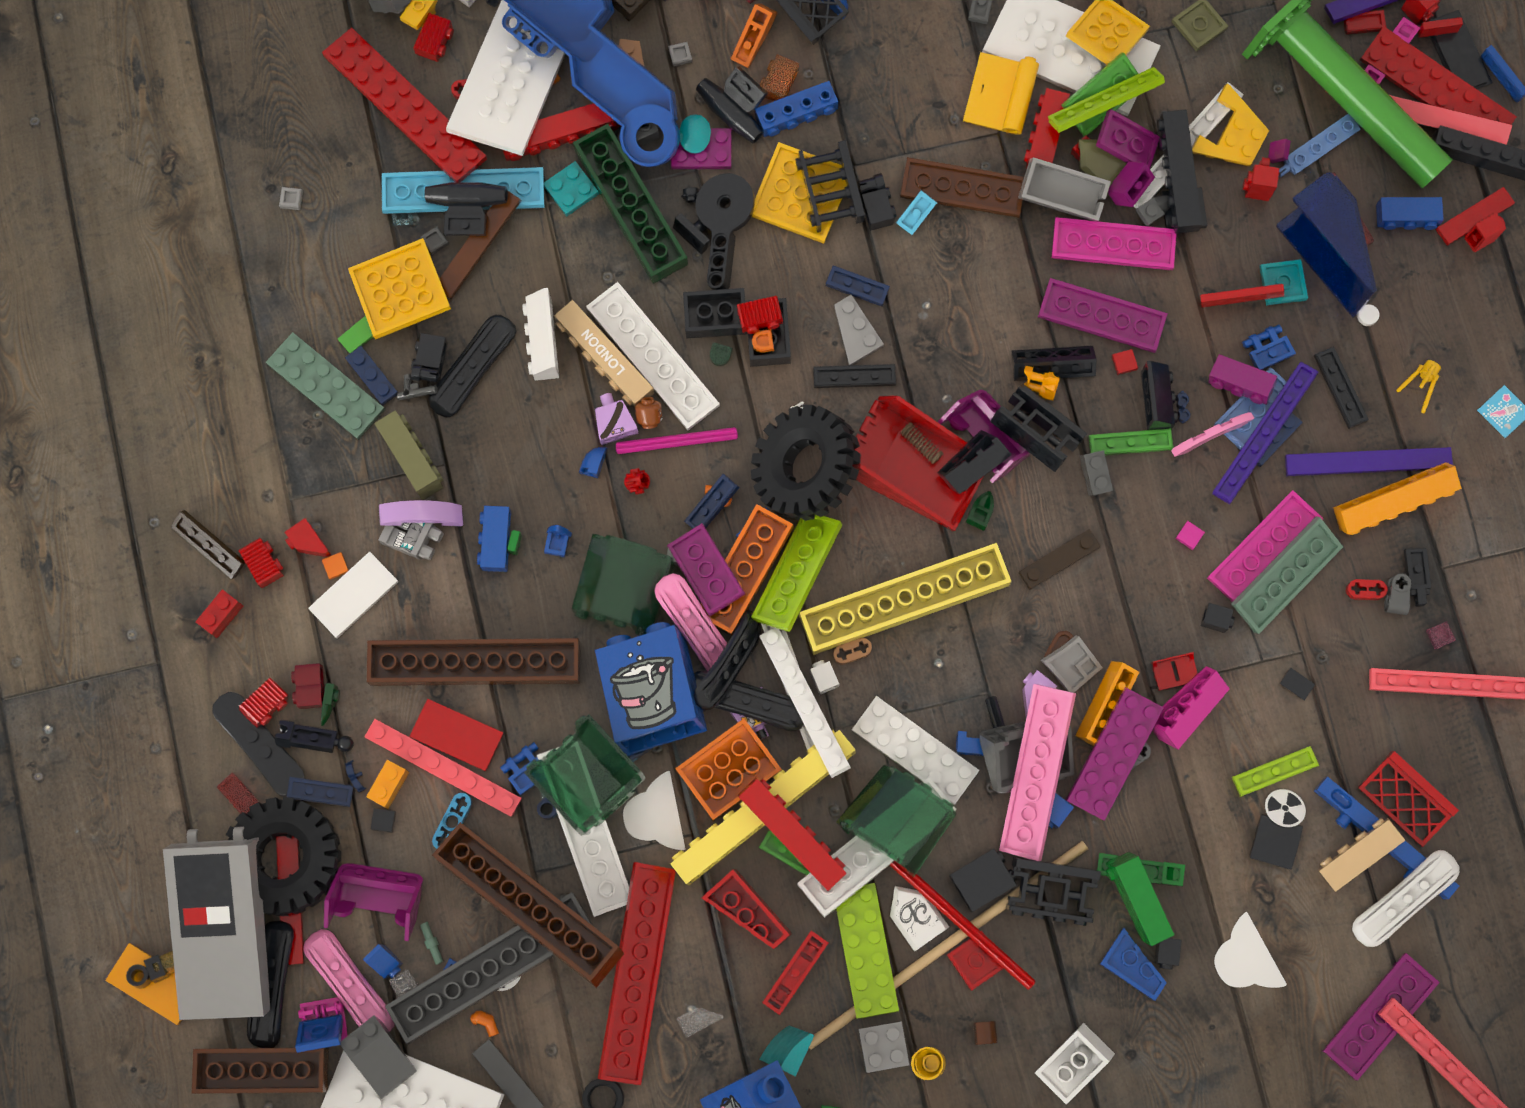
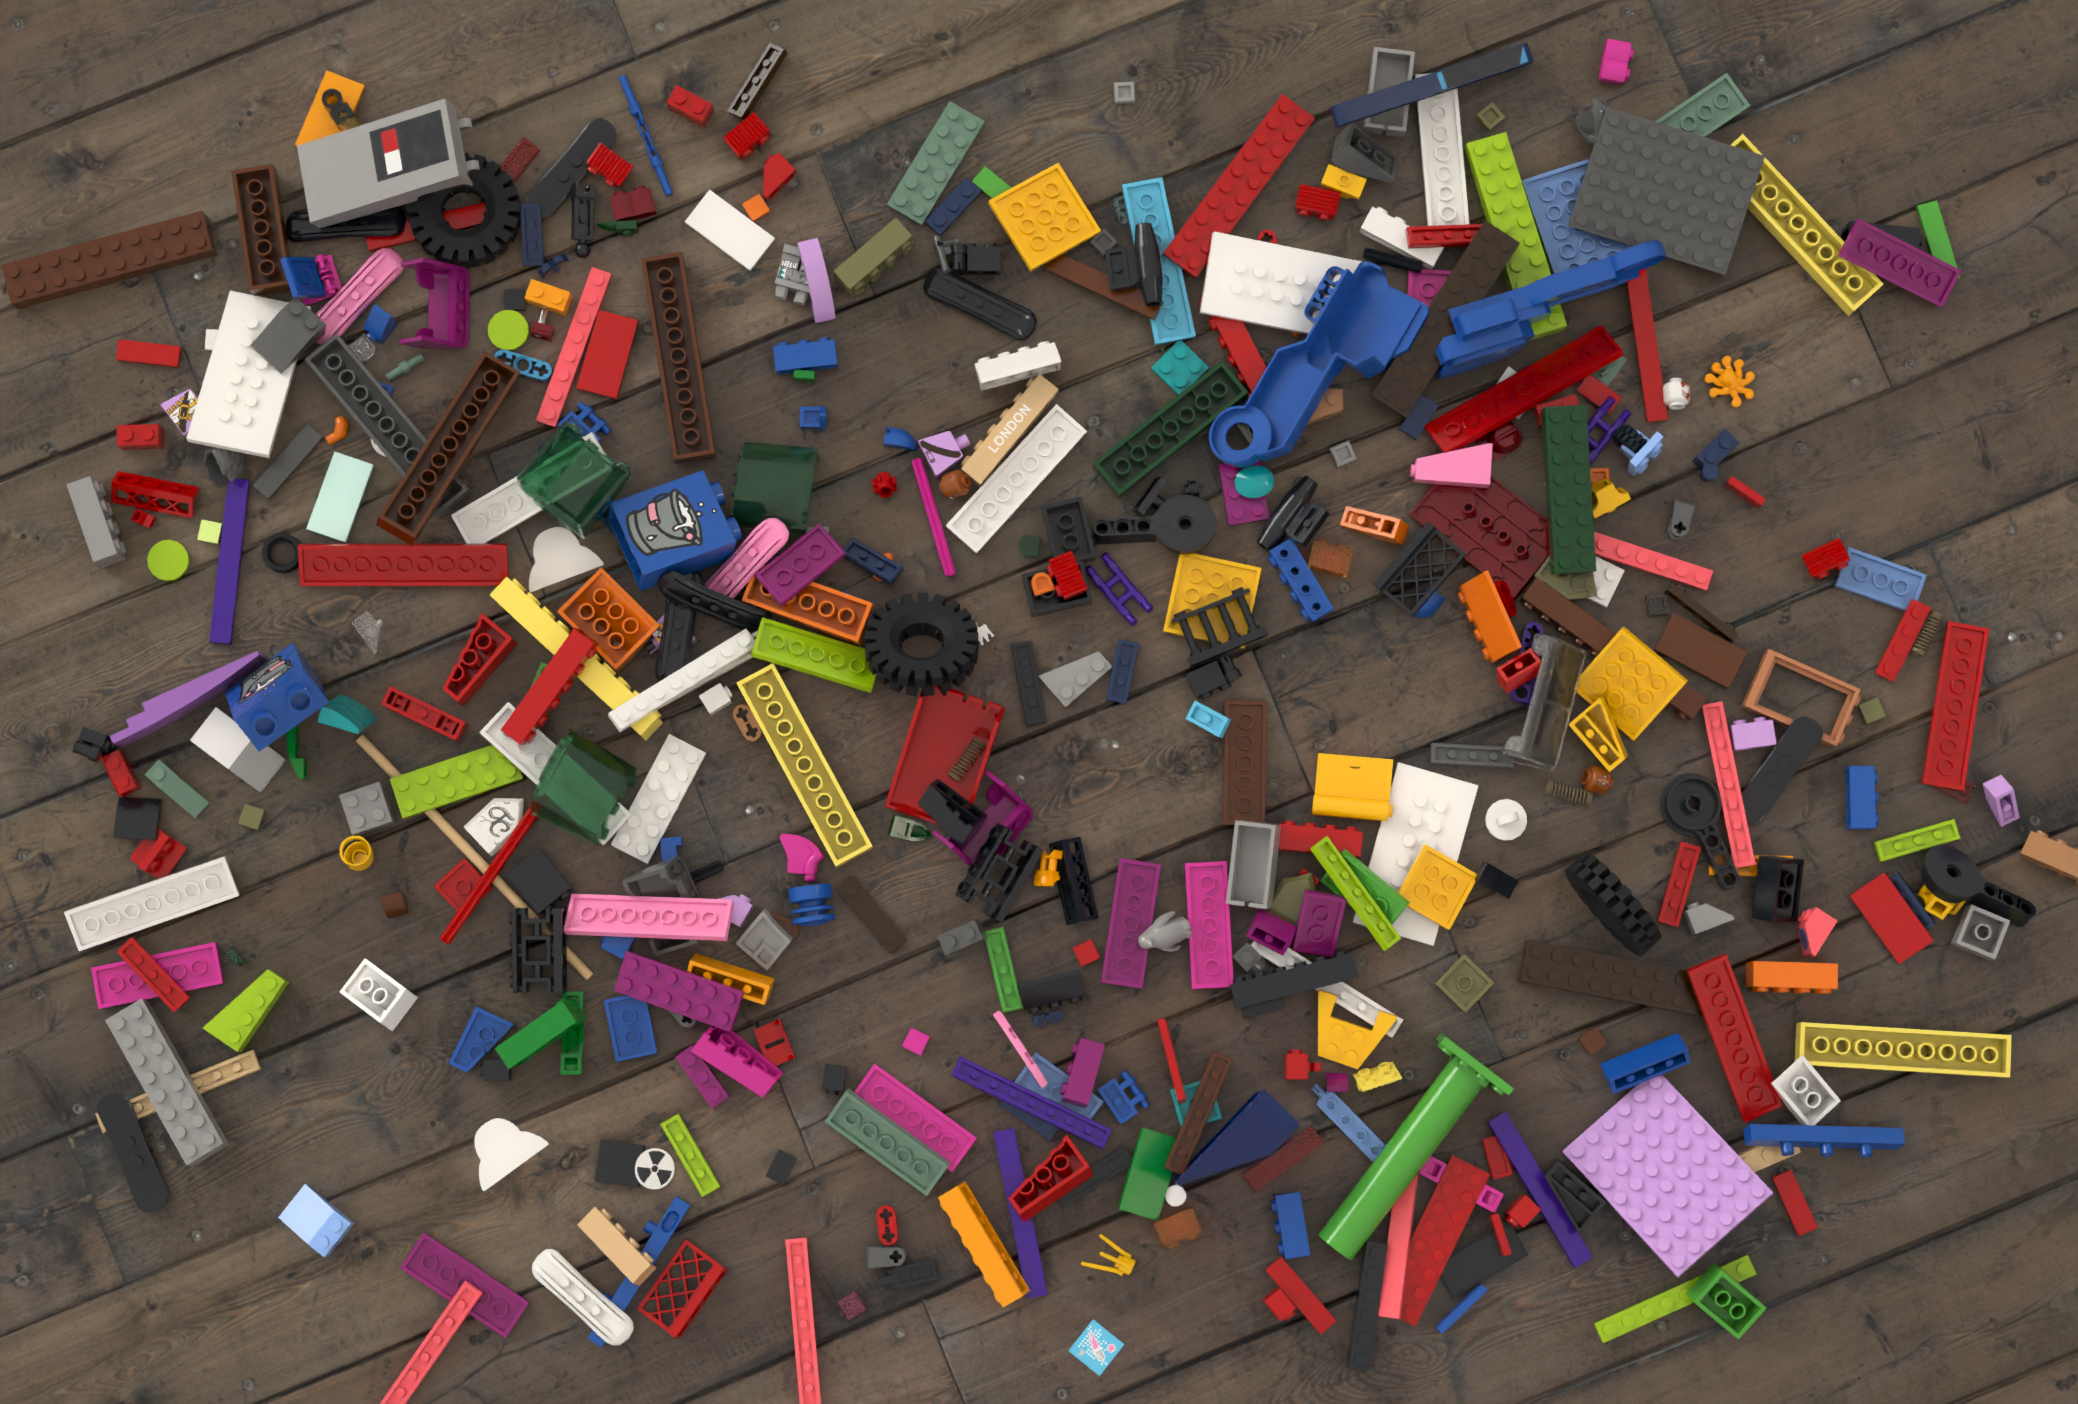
camera: 75 degrees right, 5 degrees up
(268, 657) = (635, 110): none -> blue piece
(413, 831) = (508, 330): none -> lime tile
(419, 797) = (541, 329): none -> dark red piece
(554, 1030) = (340, 497): none -> light aqua tile
(781, 266) = (1105, 588): none -> dark purple piece
(992, 617) = (801, 855): none -> dark pink arm
(1045, 611) = (812, 904): none -> blue wheel
(1118, 281) = (1165, 933): none -> light grey animal
(1142, 811) = (630, 1028): none -> blue plate
(1201, 745) = (703, 1078): none -> magenta brick
(1280, 112) = (1378, 1076): none -> light yellow hinge
(1295, 279) = (1198, 1113): none -> reddish brown tile
(1342, 420) = (1051, 1180): none -> red wedge
(1346, 334) = (1147, 1177): none -> green tile
(1400, 316) = (1177, 1227): none -> clear orange brick

